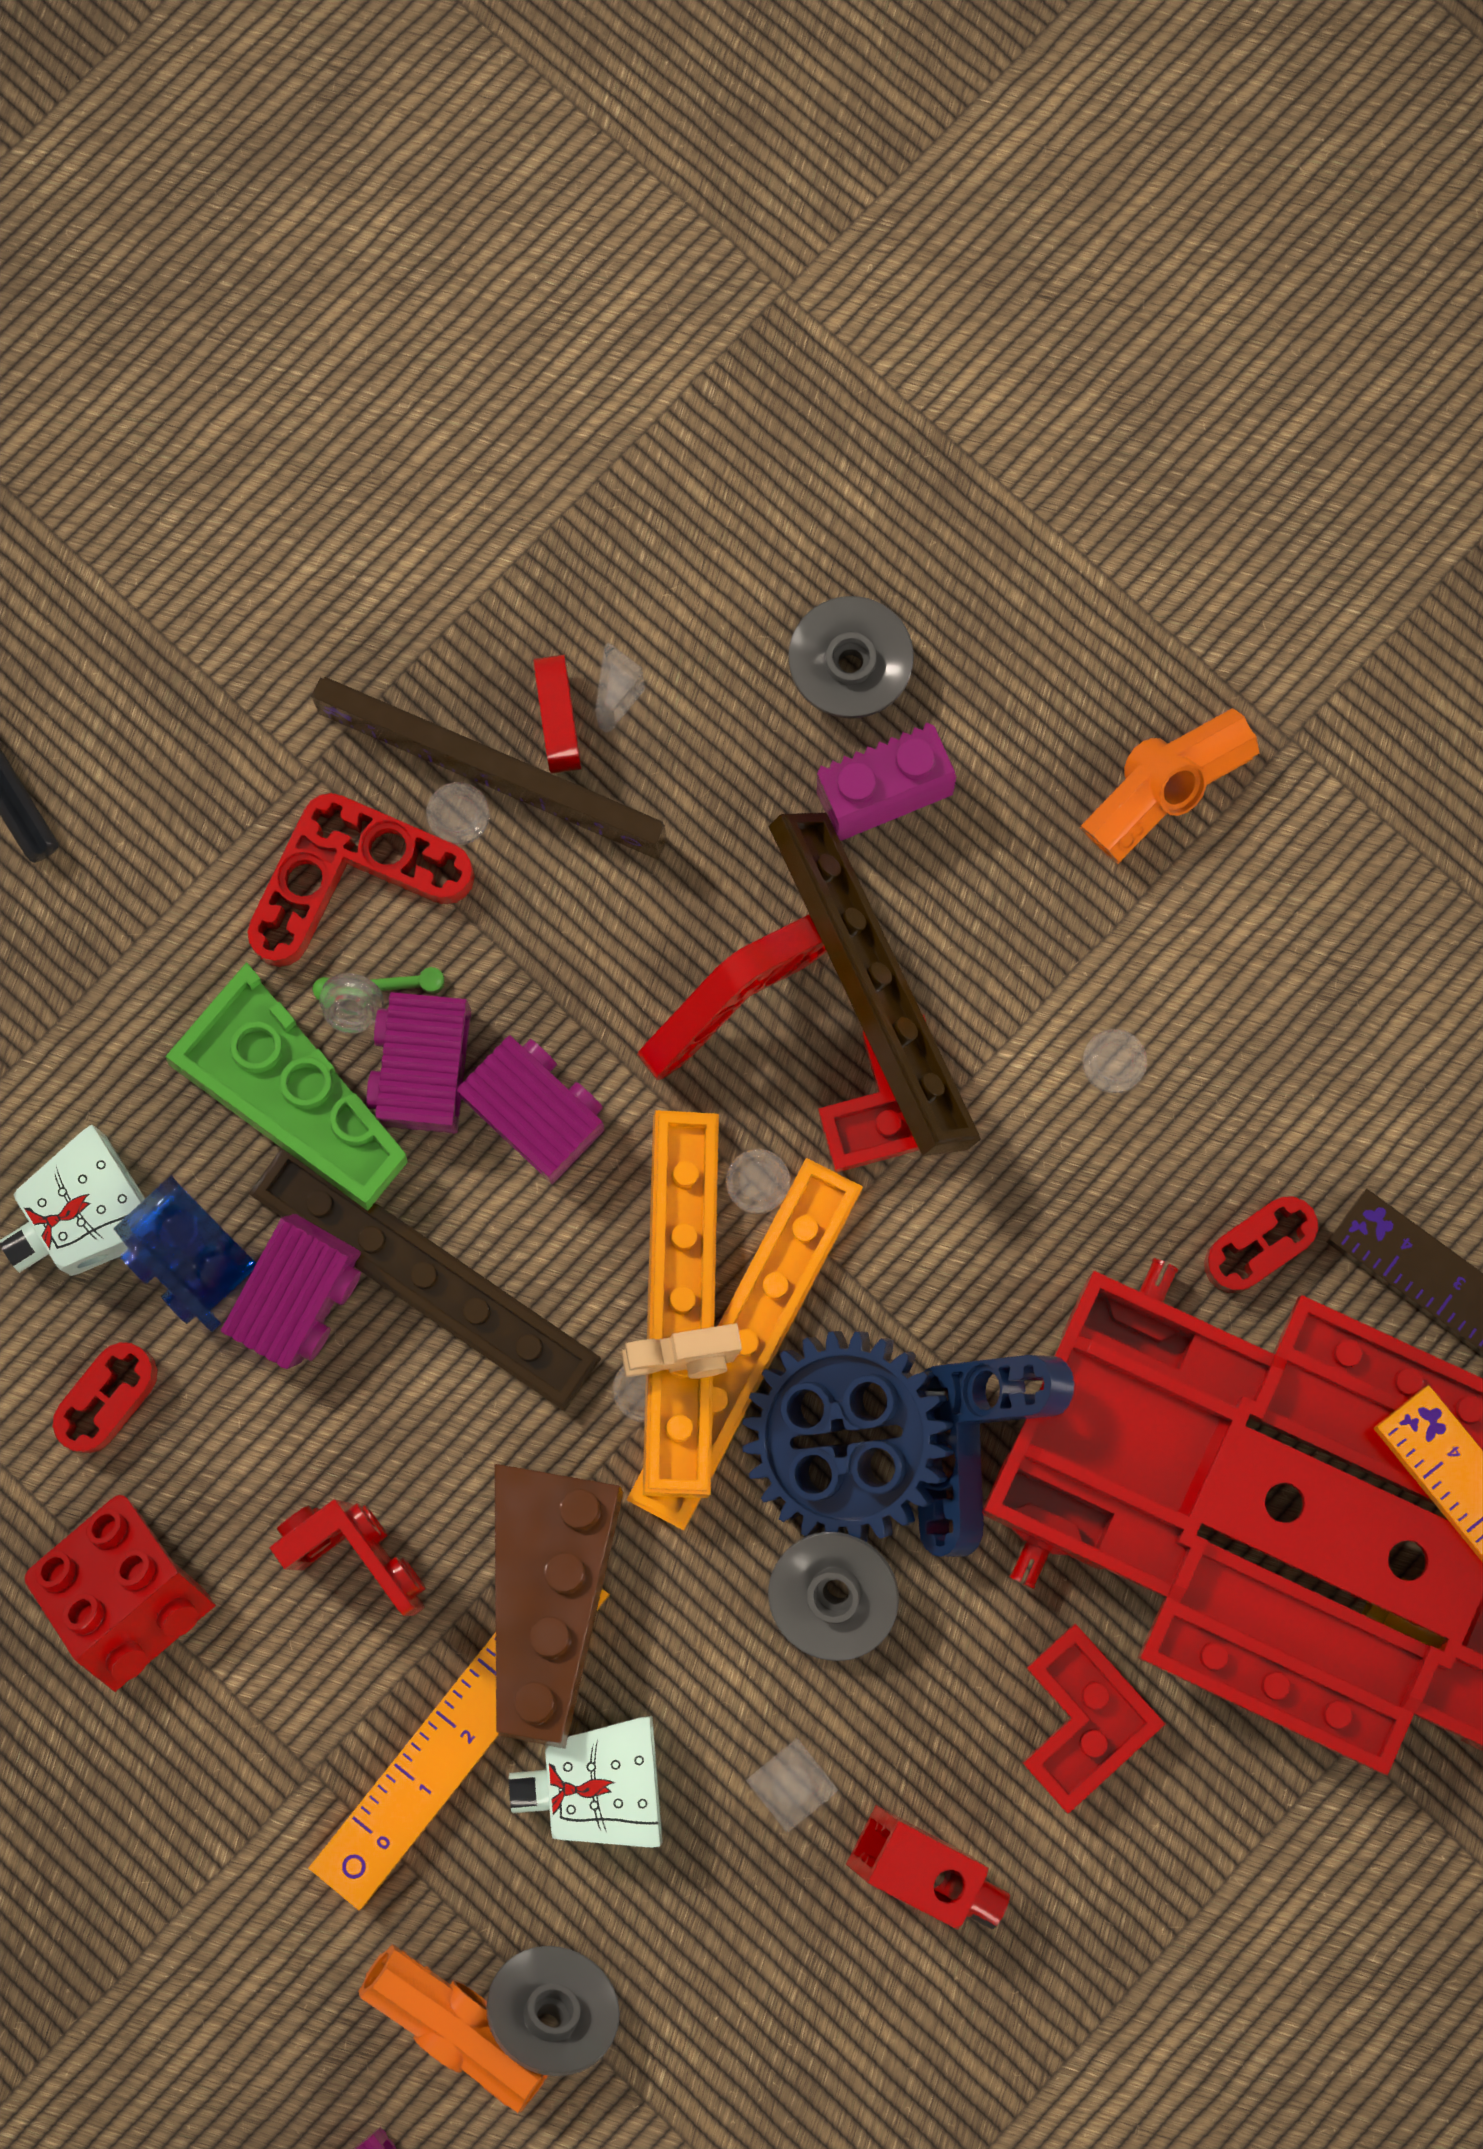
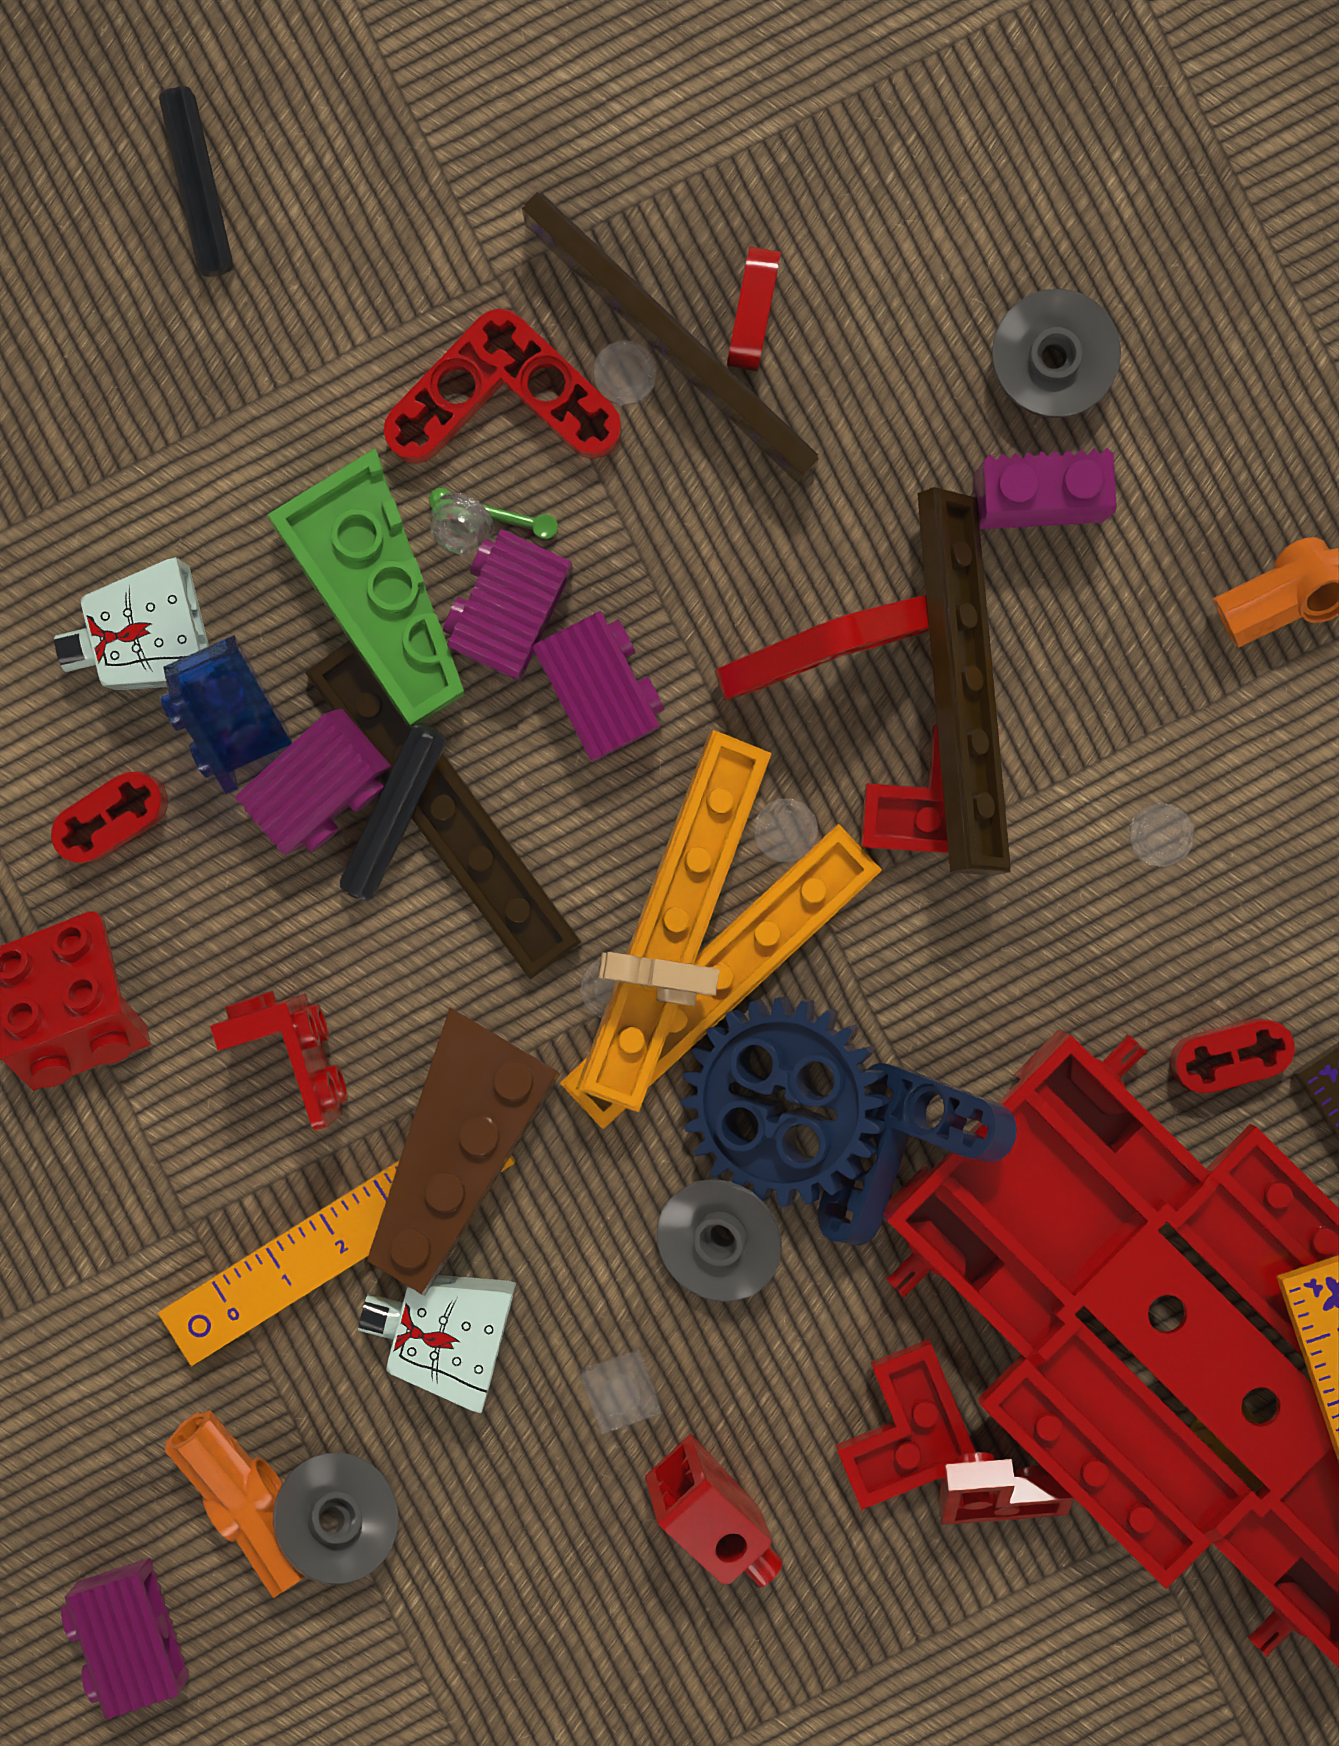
camera: 15 degrees right, 10 degrees up
(376, 1294) = (392, 812): none -> black axle
(618, 688) = (822, 303): clear slope -> none
(1182, 1754) = (987, 1491): none -> red plate

